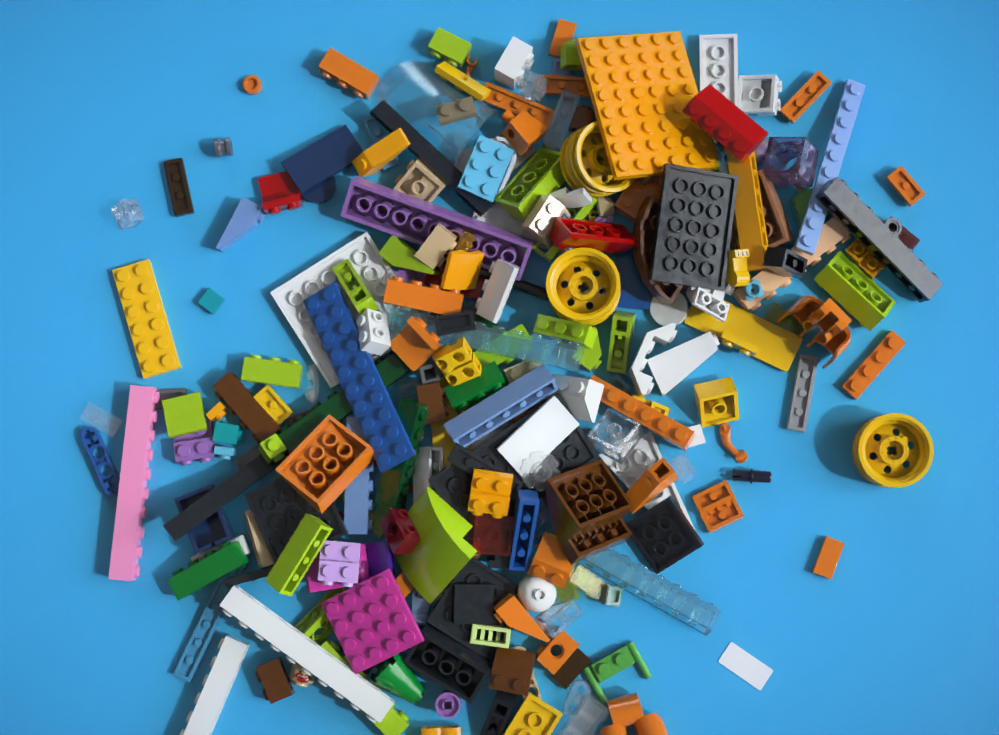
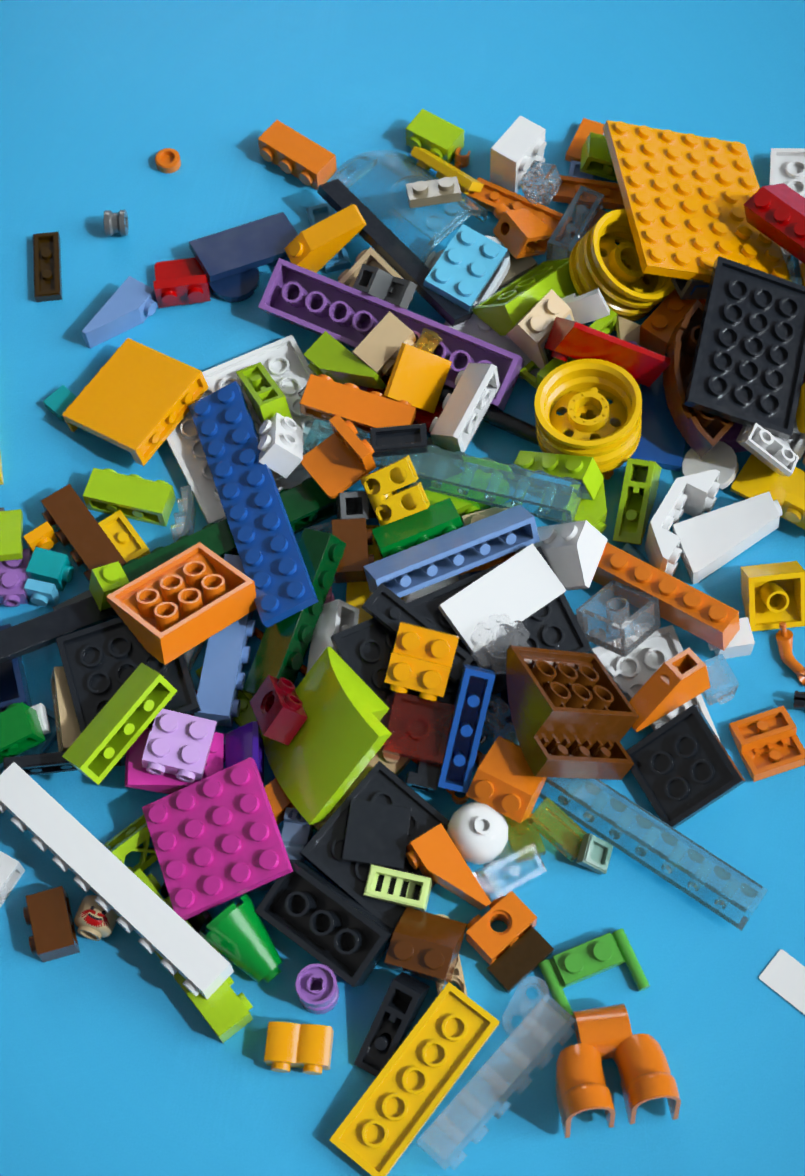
camera: 10 degrees right, 20 degrees down
(264, 298) = (136, 399): none -> light orange panel
(430, 195) = (385, 286): none -> dark grey brick

